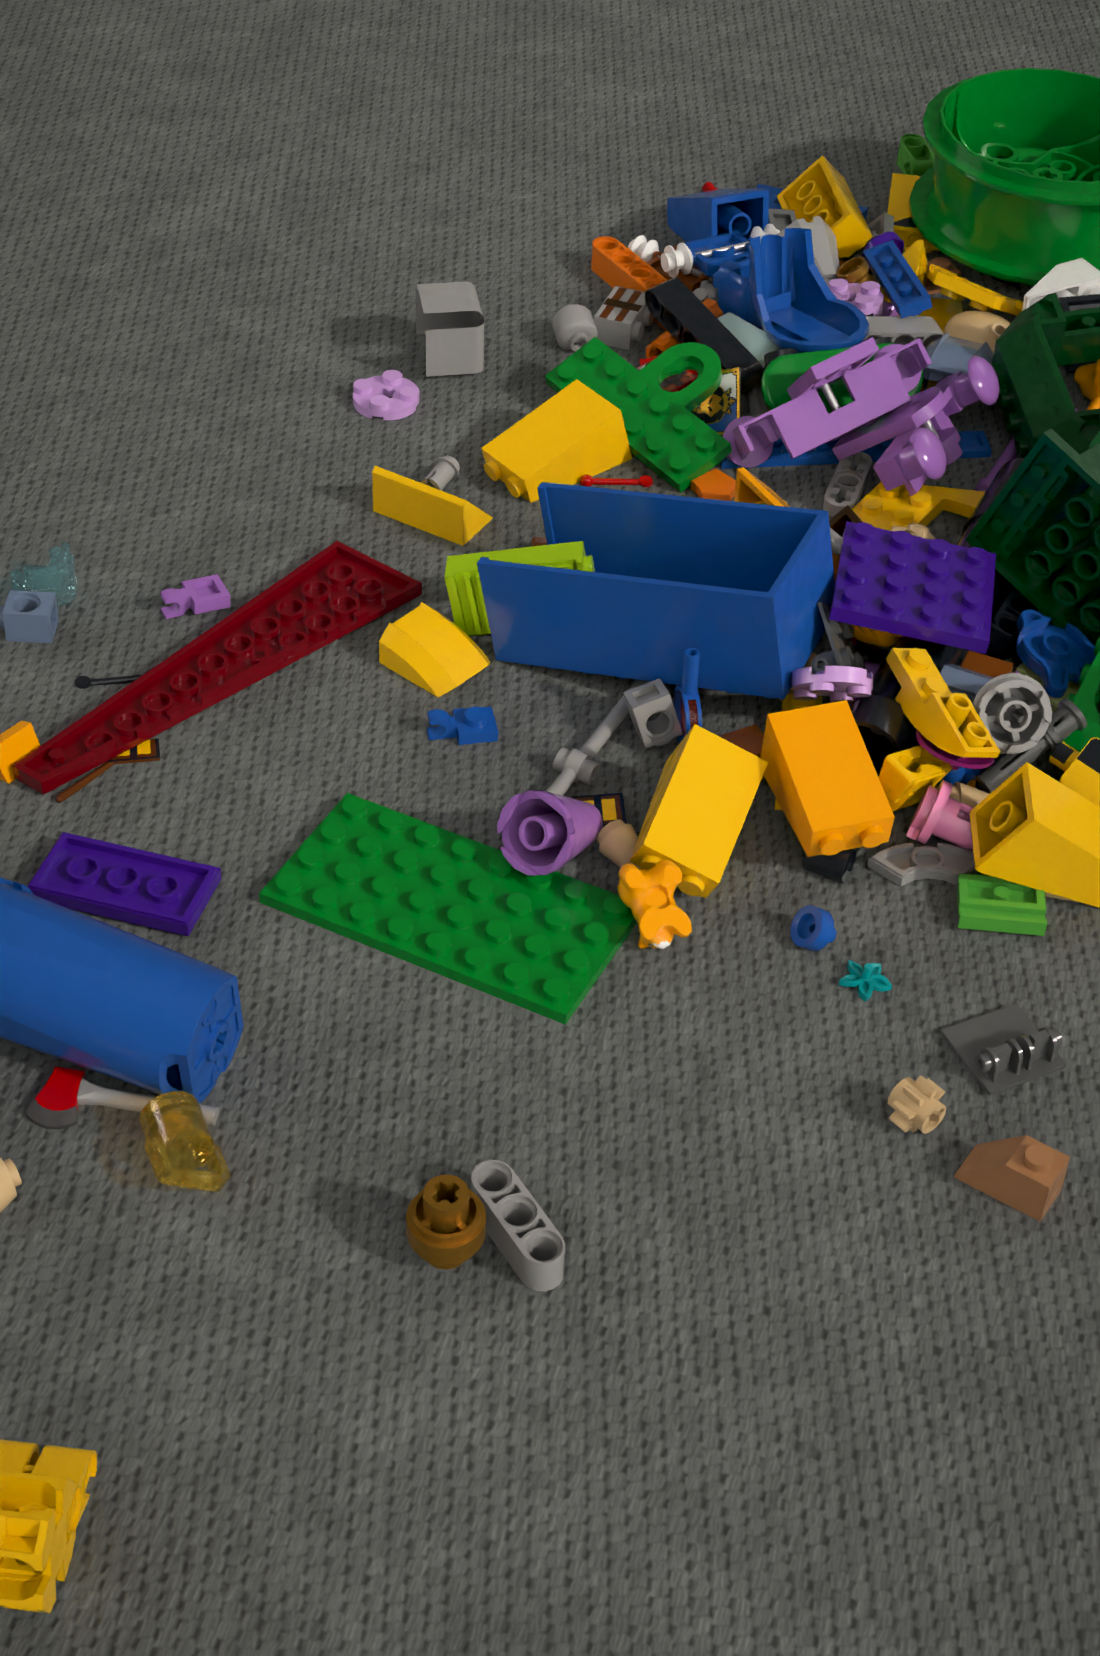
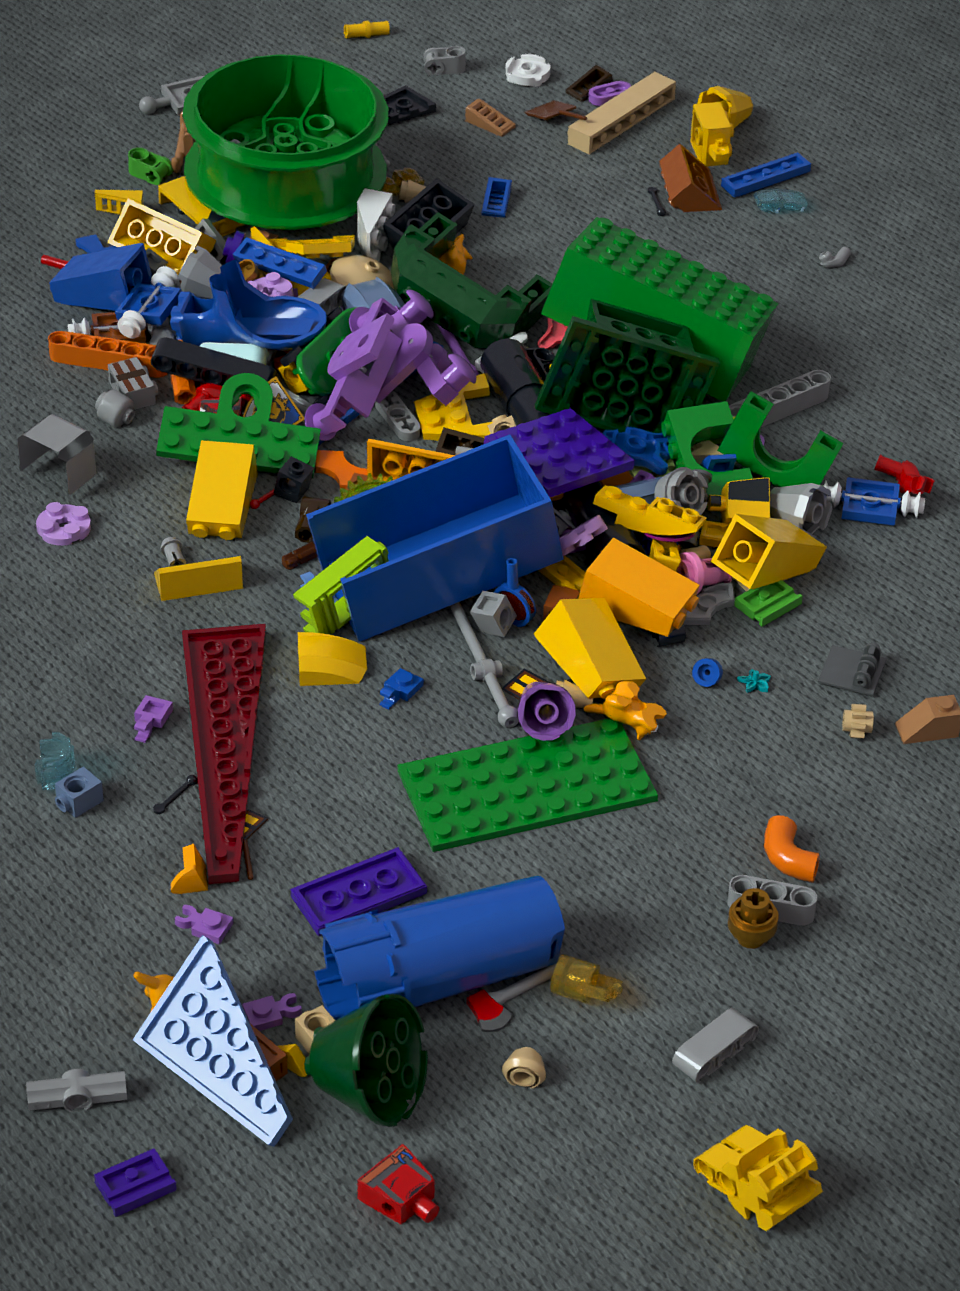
camera: 45 degrees left, 0 degrees up
(214, 1330) = (714, 1043): none -> light grey beam
(611, 1185) = (785, 854): none -> orange cylinder
(643, 471) = (293, 480): none -> black brick
(857, 173) = (119, 196): none -> yellow slope

